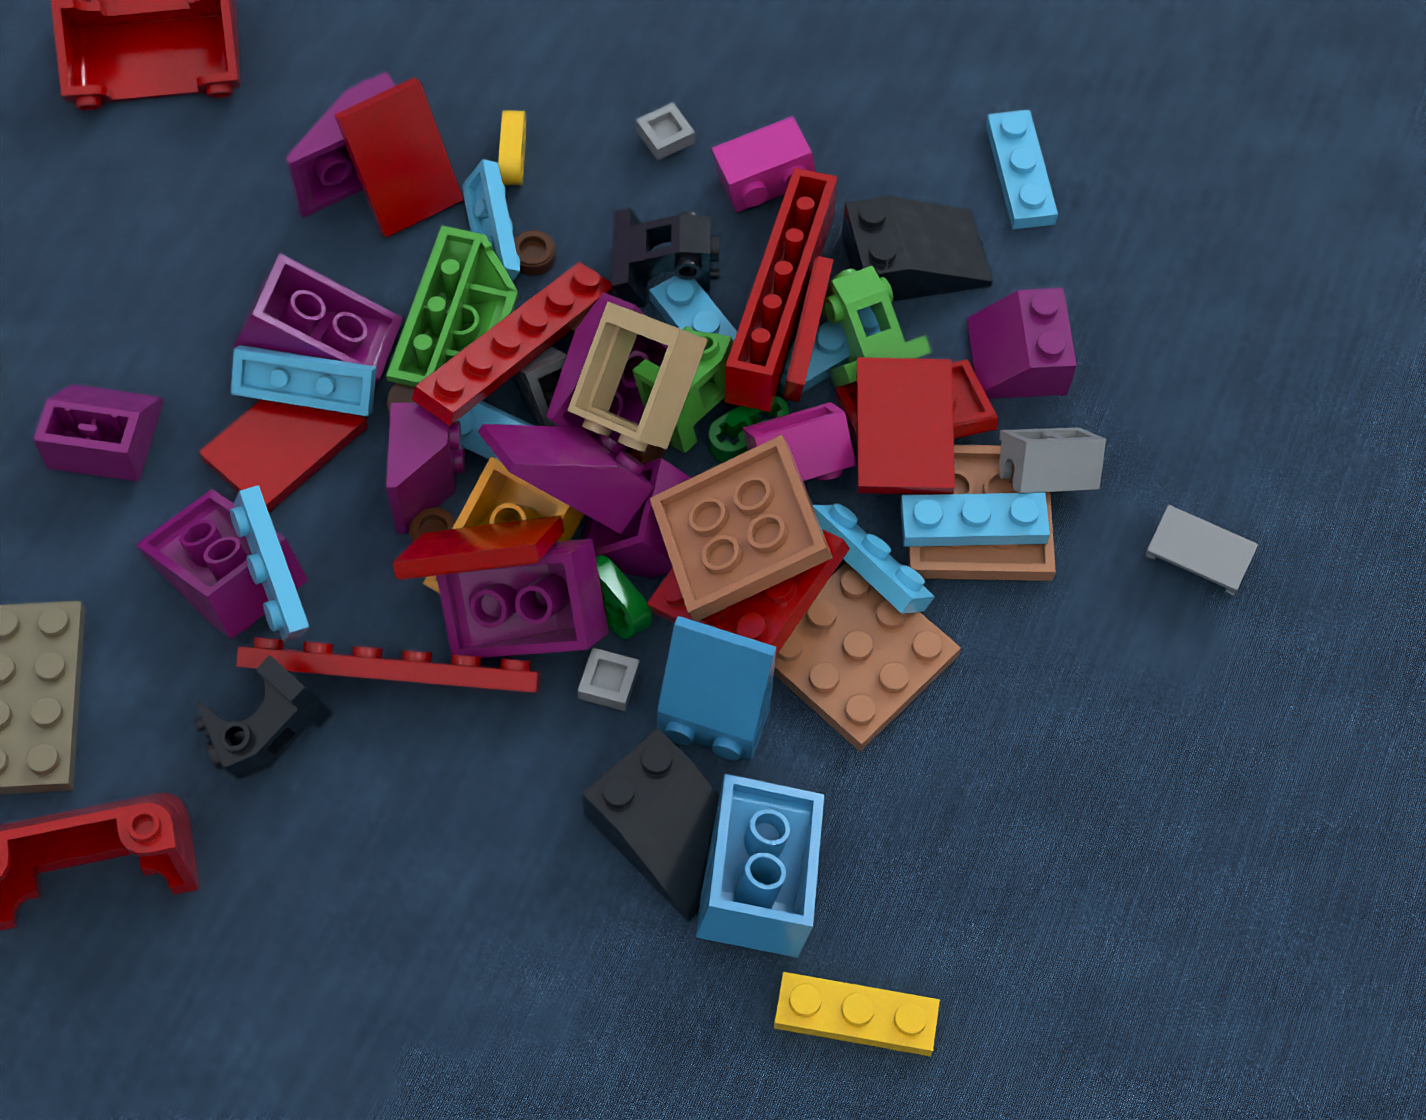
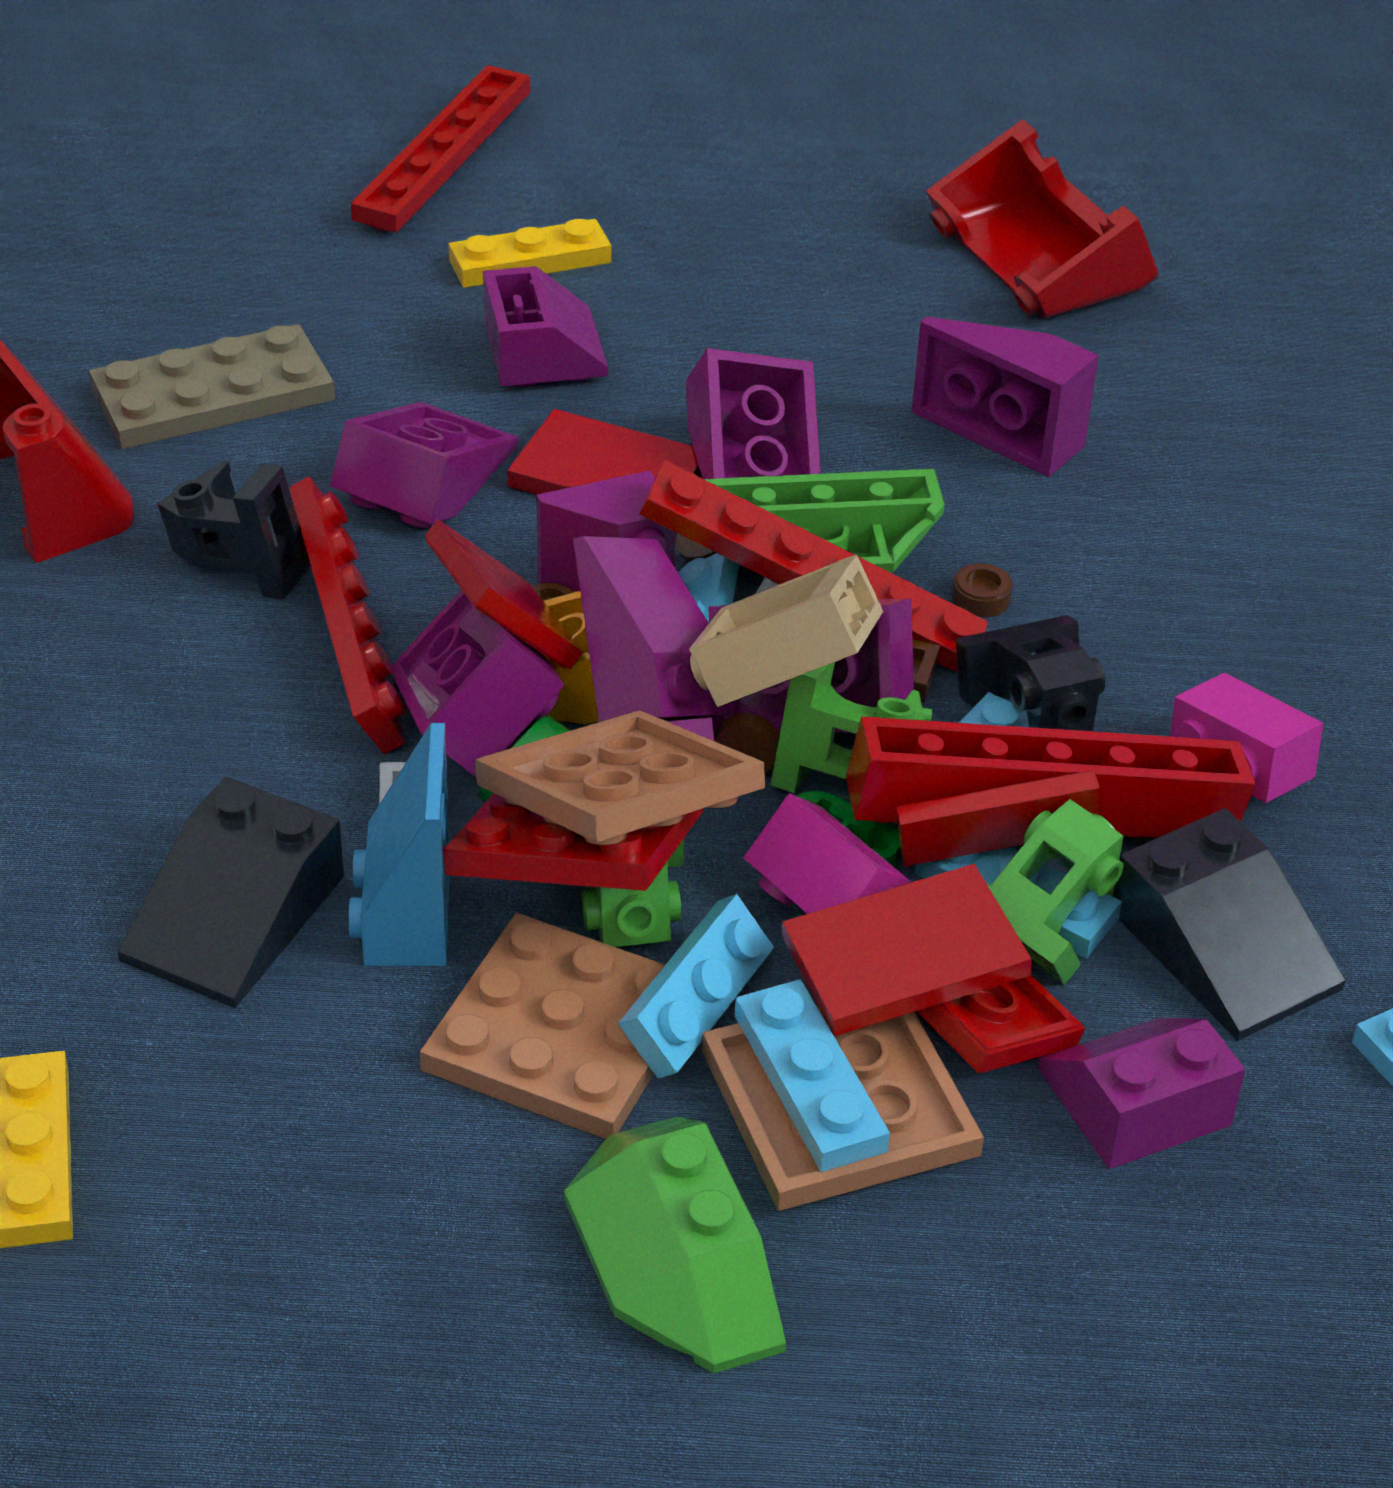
camera: 70 degrees right, 20 degrees down
(268, 564) = (397, 441): medium azure plate -> none
(303, 380) = (672, 426): medium azure plate -> none
(399, 157) = (1005, 414): red tile -> none
(489, 213) = (985, 538): medium azure plate -> none
(512, 147) = (1112, 526): yellow beam -> none
(665, 131) = (1237, 647): light grey plate -> none
(762, 867) = (193, 975): dark azure slope -> none
(1052, 459) = (954, 1134): light grey hinge -> none
(1058, 641) = (677, 1244): none -> bright green wedge
(1202, 548) = (908, 1370): light grey hinge -> none

